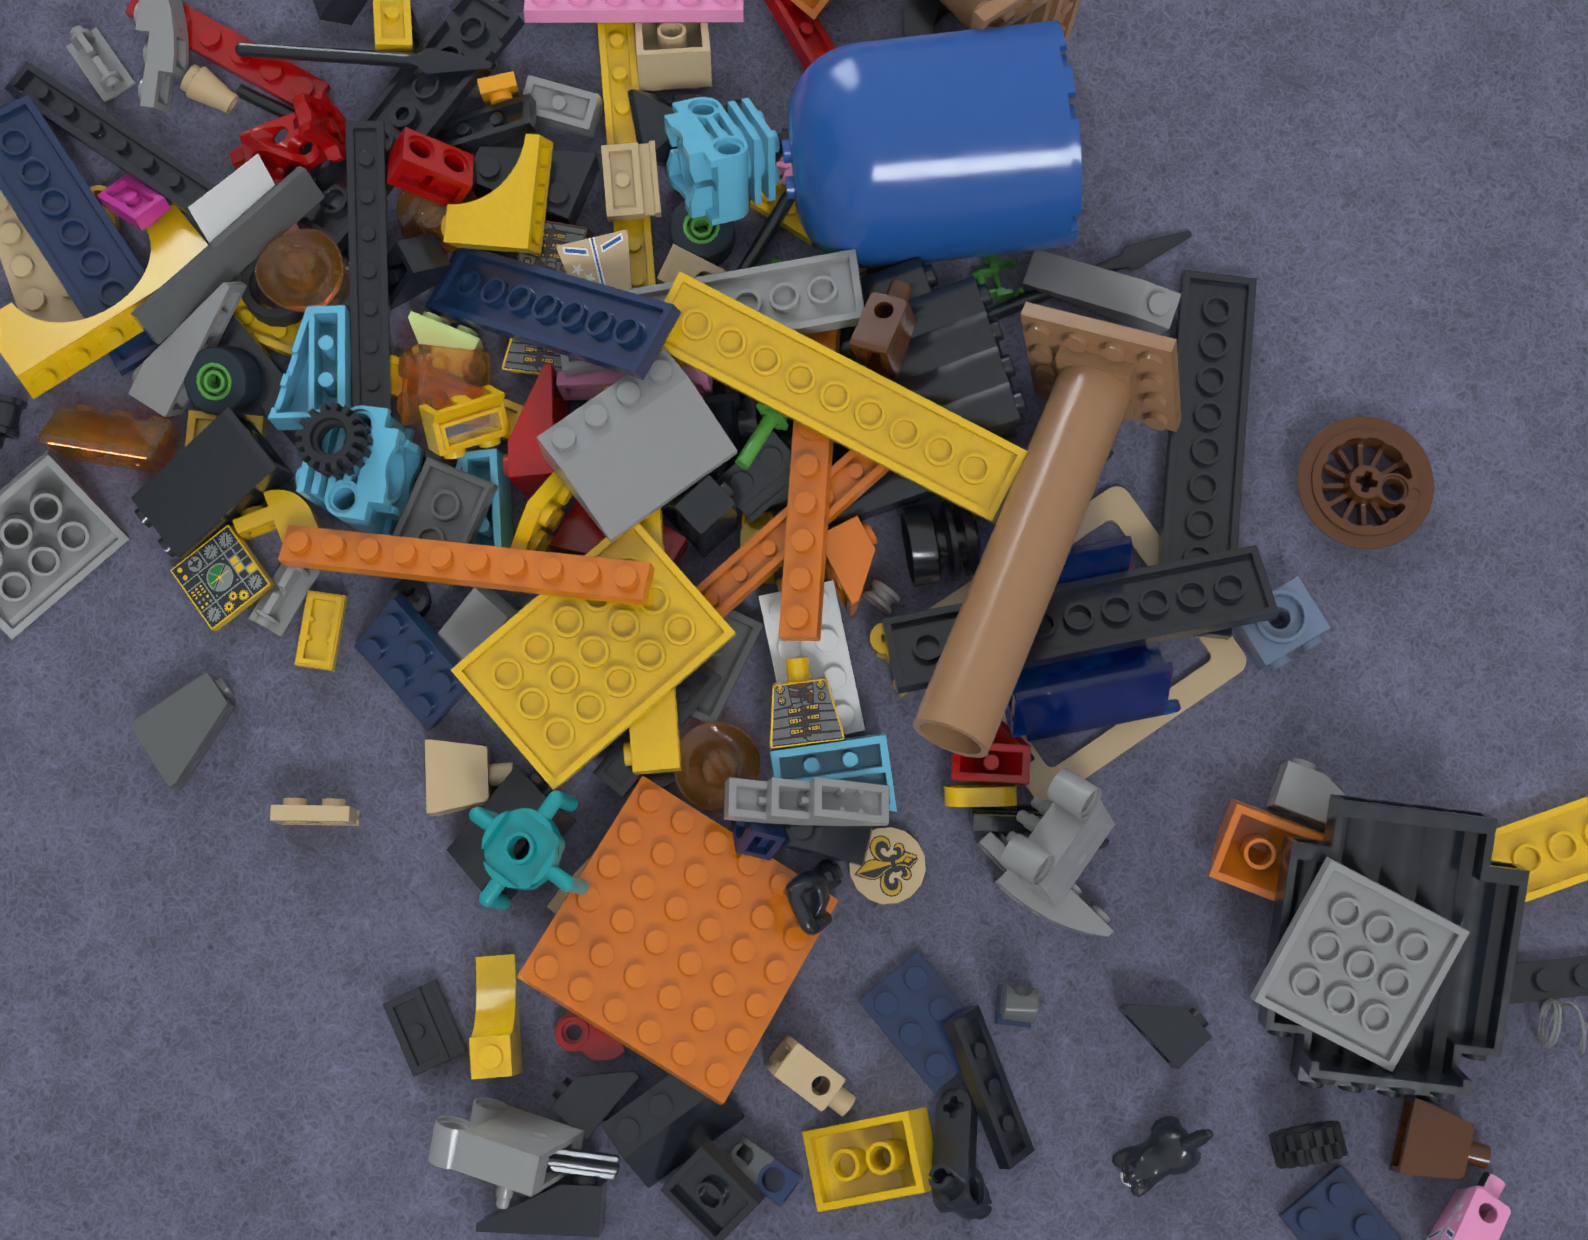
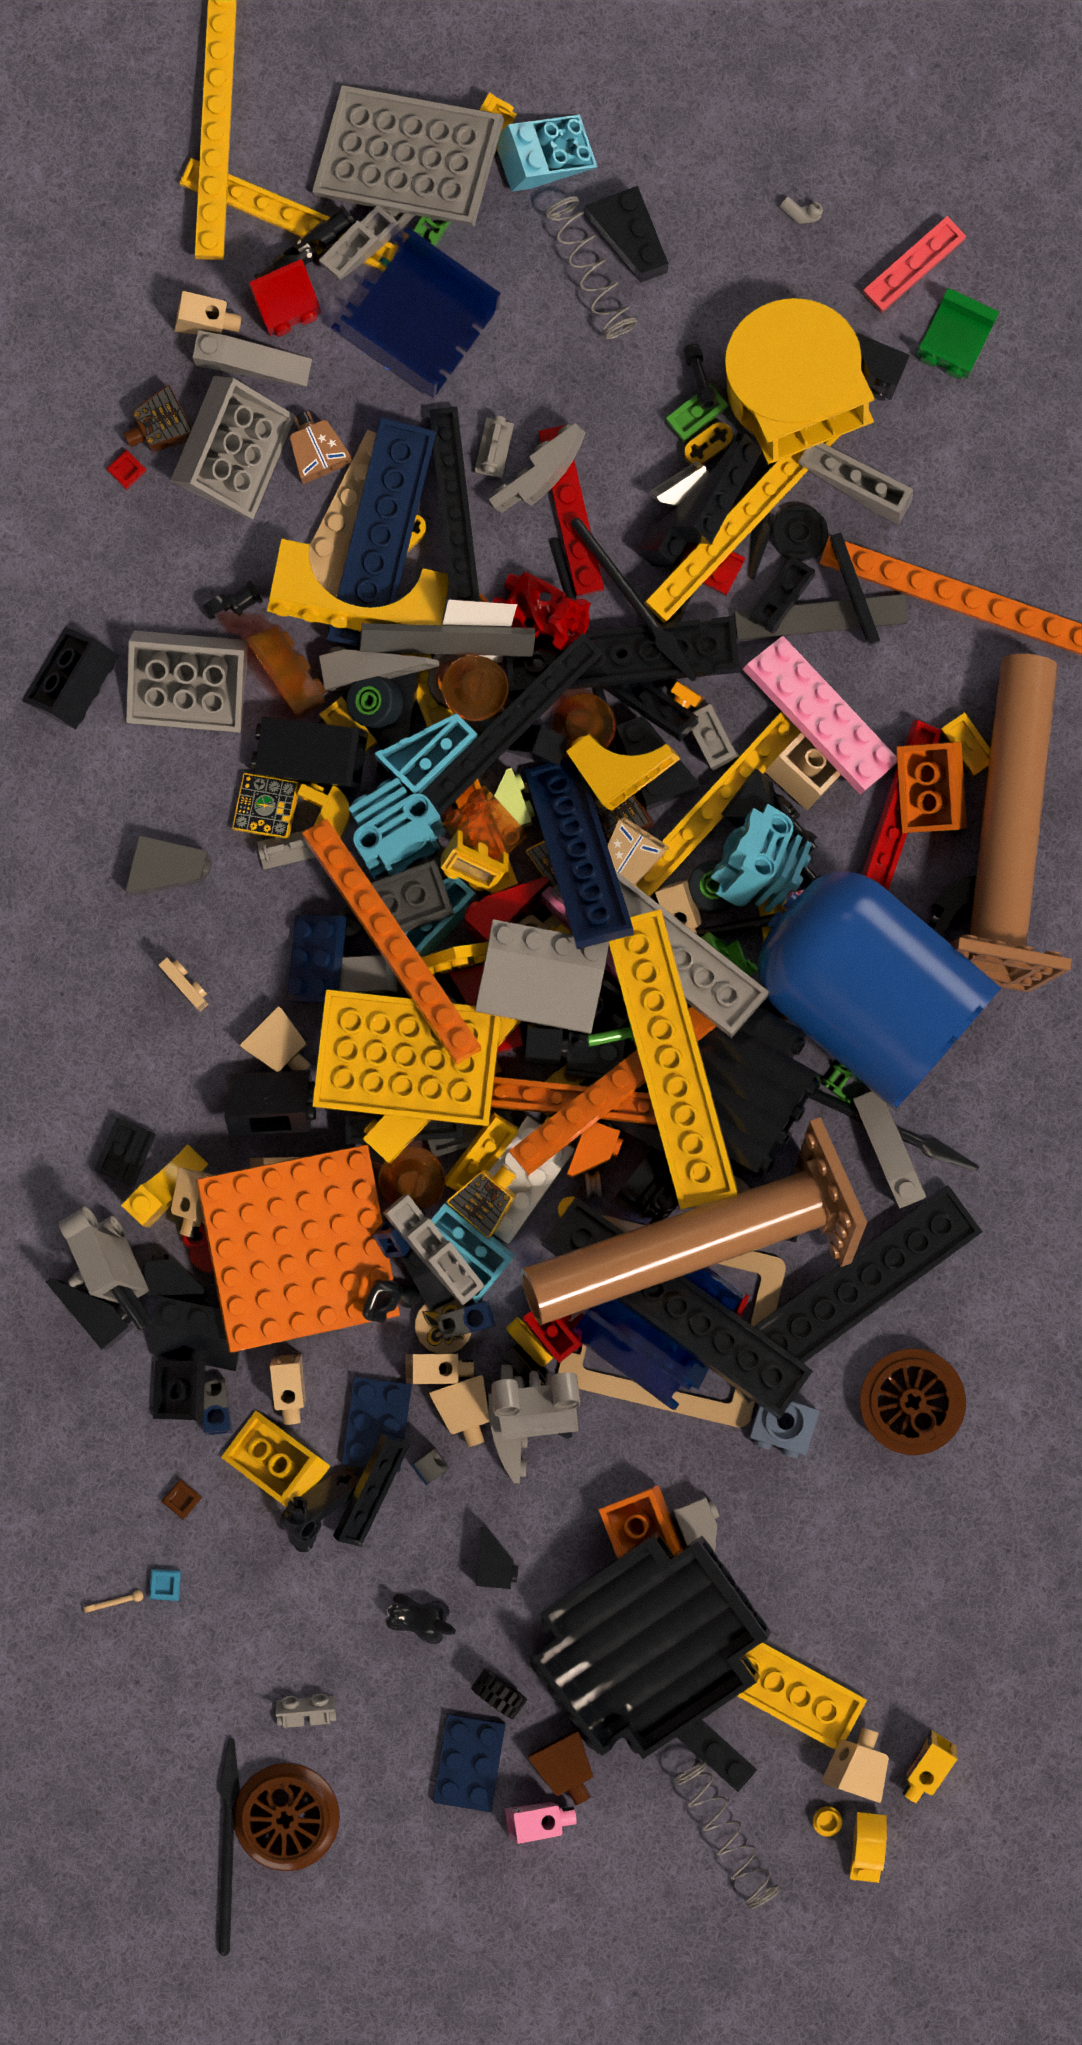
camera: 50 degrees right, 5 degrees up
(134, 202) = (429, 552): dark pink plate -> none
(207, 89) = (536, 524): tan cone -> none
(319, 426) = (386, 789): black tyre -> none
(321, 630) = (287, 889): yellow plate -> none
(430, 168) = (601, 704): red brick -> none
(531, 1008) = (187, 1201): none -> tan torso
(544, 853) = (274, 1133): teal plate -> none
(631, 181) = (702, 821): tan plate -> none
(753, 673) = (482, 1151): none -> yellow plate
(884, 330) = (726, 1051): reddish brown torso -> none
(903, 838) = (466, 1320): none -> leg
(916, 919) = (425, 1368): none -> tan torso
(988, 919) = (464, 1408): none -> tan torso
(1359, 964) = (619, 1633): light grey plate -> none

